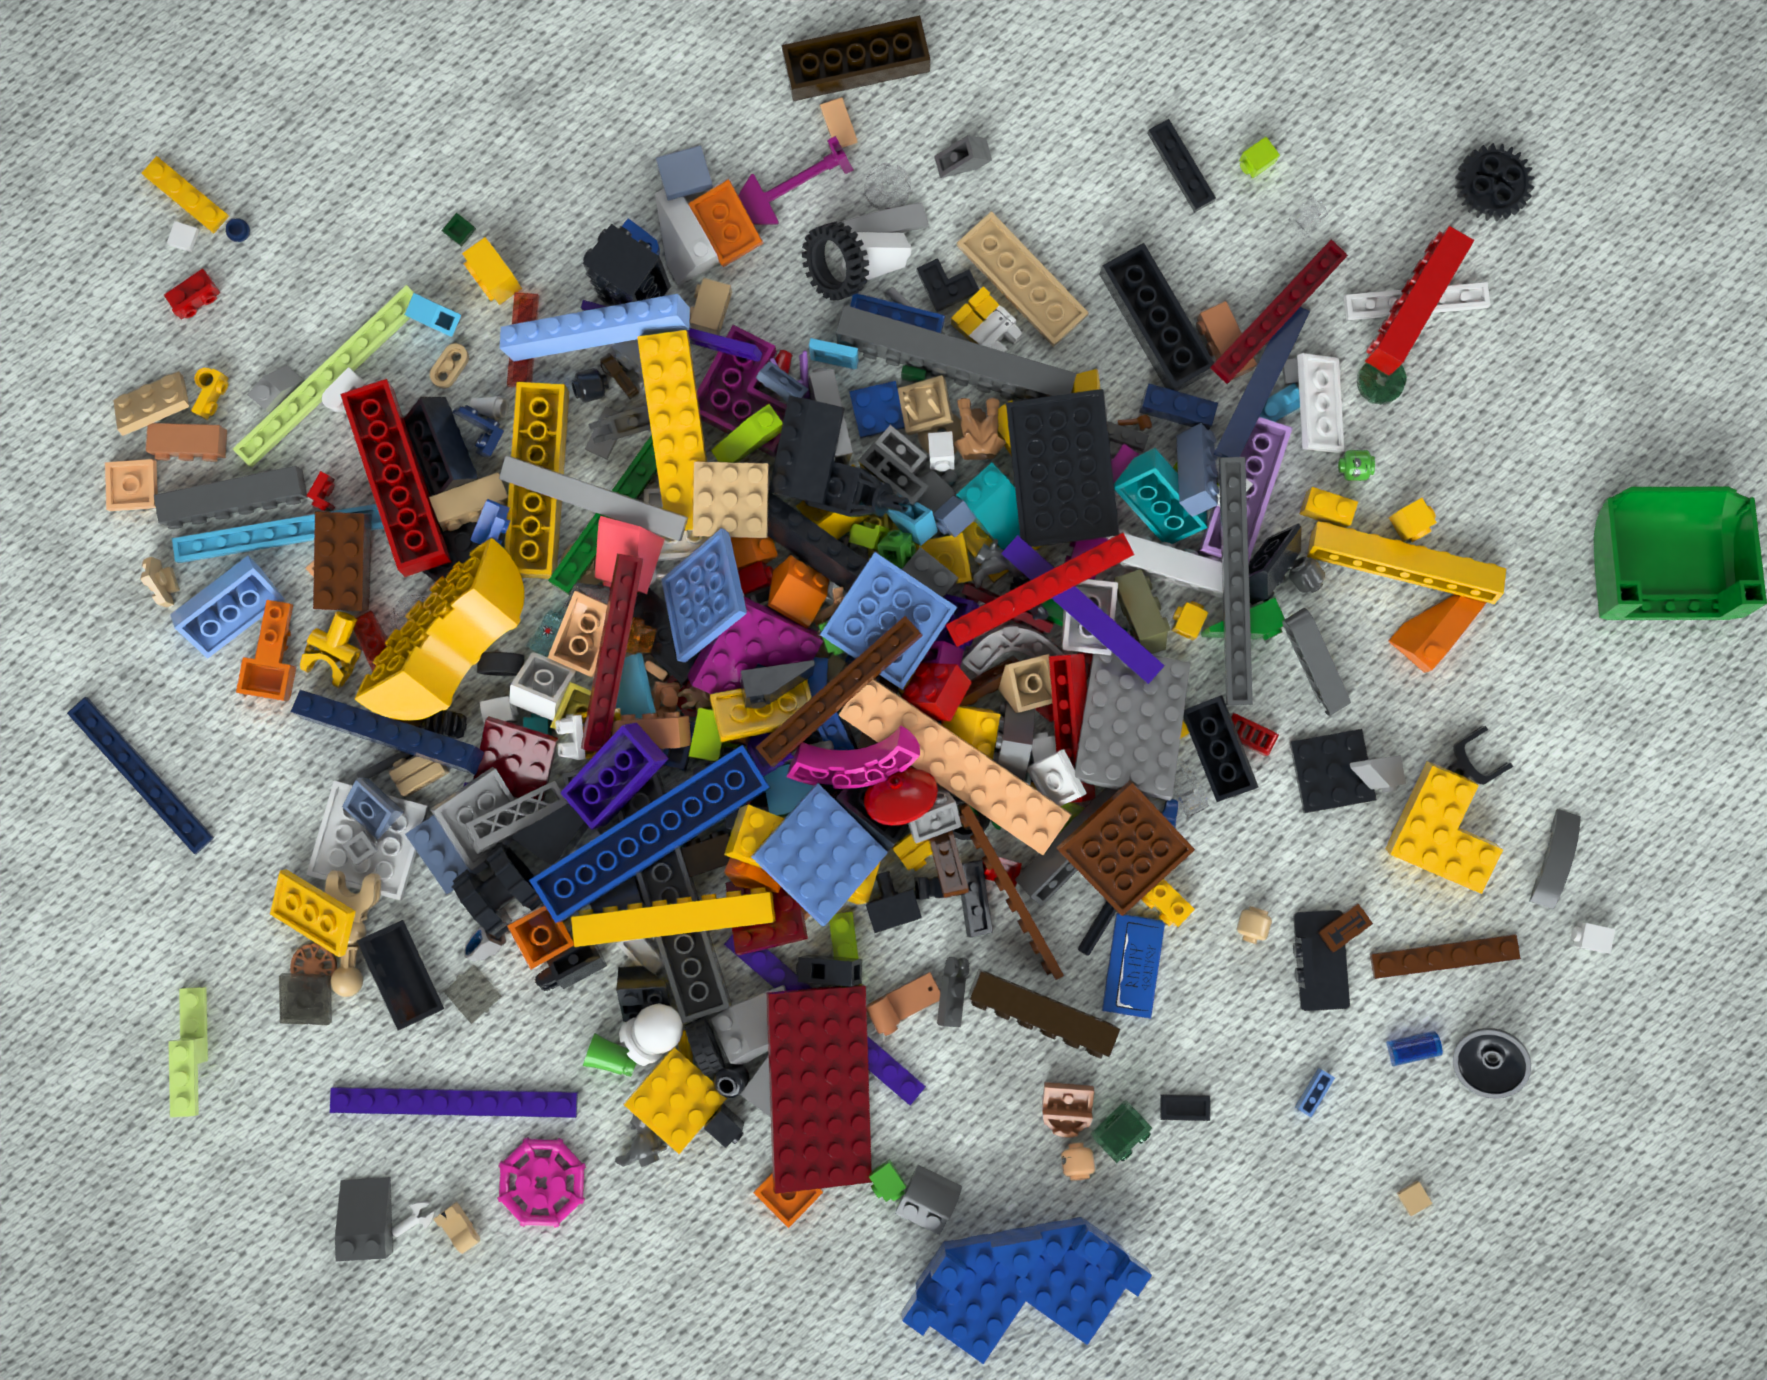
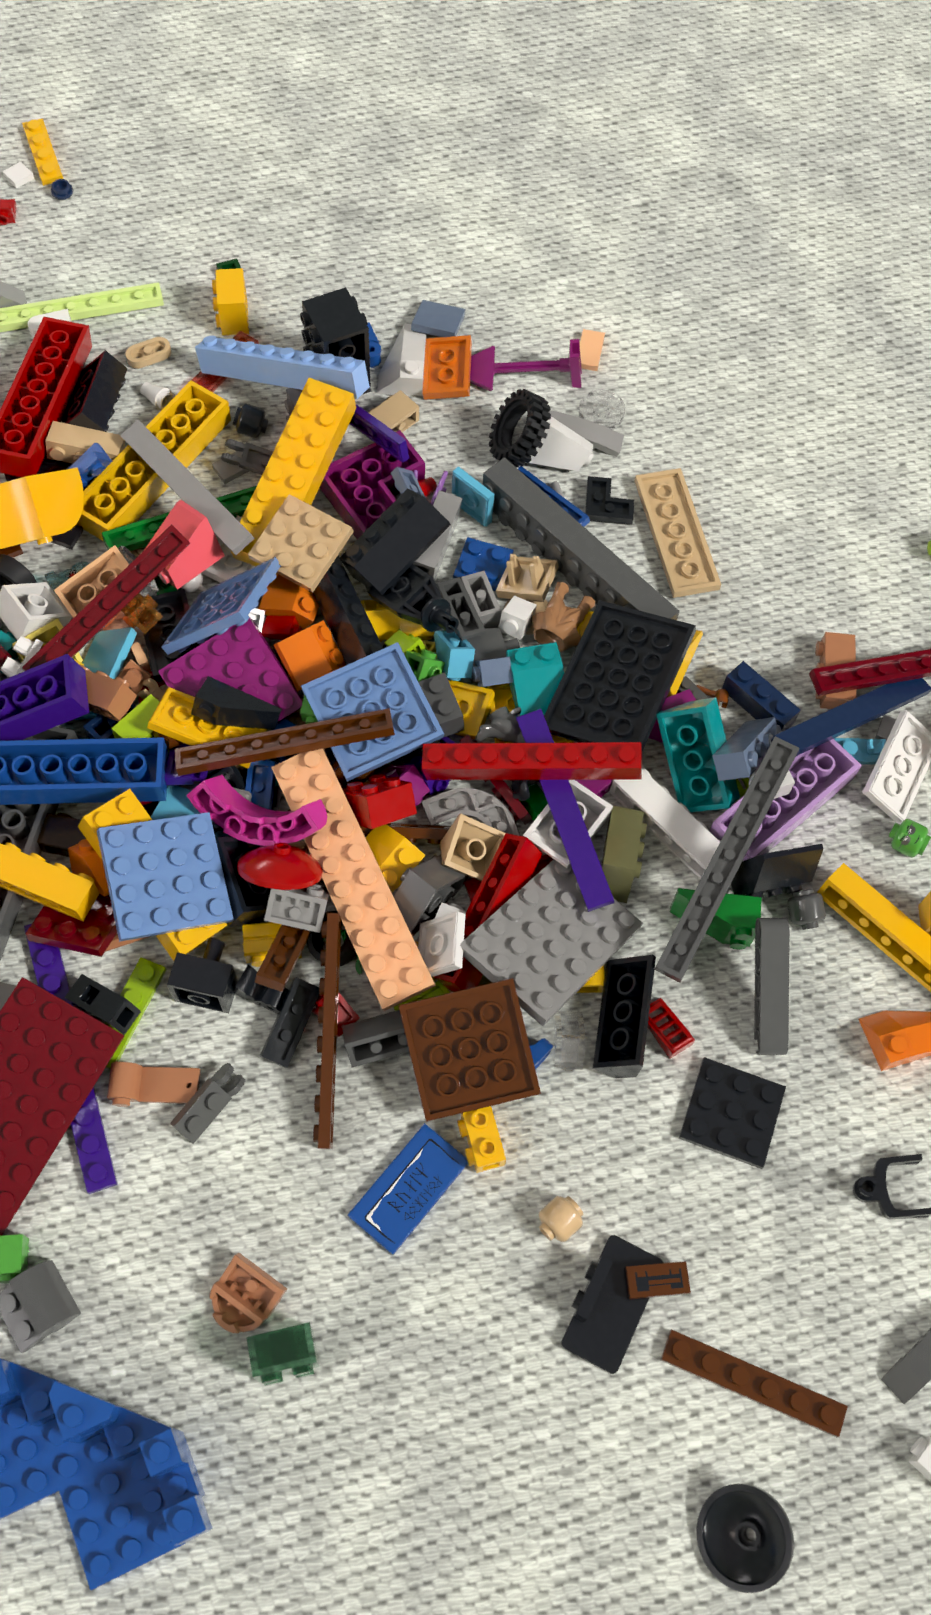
camera: 25 degrees right, 20 degrees down
(432, 314) = (163, 309): medium azure slope -> none
(488, 441) = (141, 404): dark blue bracket -> none
(618, 375) = (279, 420): dark brown piece -> none
(749, 436) = (357, 509): lime slope -> none
(856, 58) = (633, 309): dark brown brick -> none
(913, 374) = (530, 548): dark green tile -> none
(963, 156) = (682, 419): flat silver slope -> none
(986, 322) = (625, 541): hips -> none
(1044, 1013) = (282, 1170): dark brown brick -> none
(1078, 1162) = (217, 1363): light nougat head -> none
(1097, 929) = (394, 1128): black axle -> none
(1156, 318) = (782, 618): black brick -> none
(1181, 165) = (873, 520): black plate -> none
(1185, 1107) = (370, 1377): black tile -> none
(1189, 619) = (663, 885): yellow brick -> none
(1314, 1092) = (523, 1448): medium blue piece -> none
(1328, 507) = (861, 857): yellow brick -> none
(1381, 772) = (782, 1136): light grey slope -> none
(1414, 1048) = (664, 1469): clear blue brick -> none
(1431, 834) = (803, 1234): yellow brick -> none

